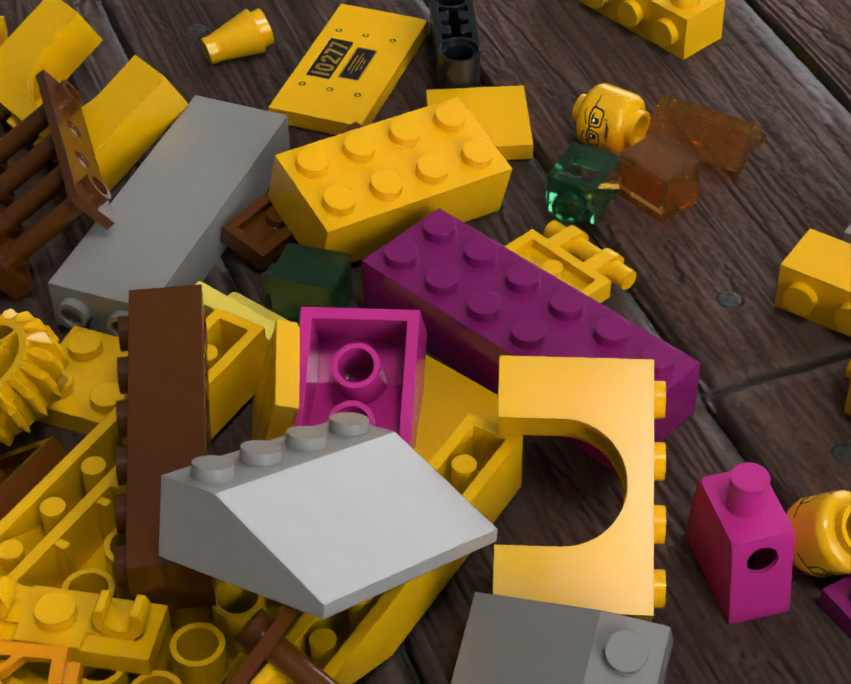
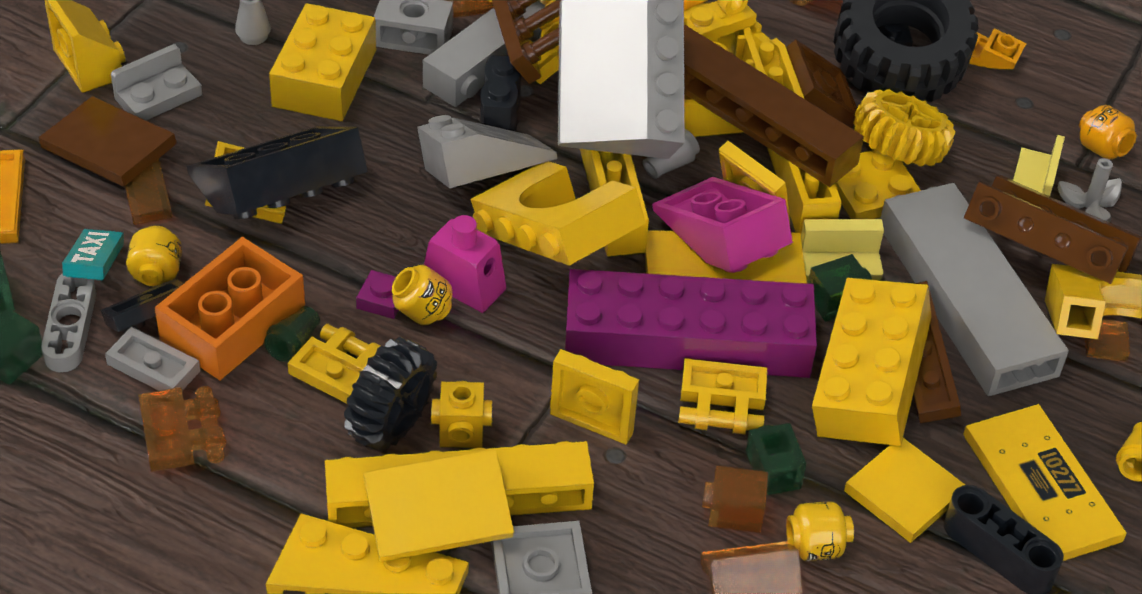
camera: 135 degrees right, 5 degrees up
(731, 297) = (594, 396): none -> yellow plate

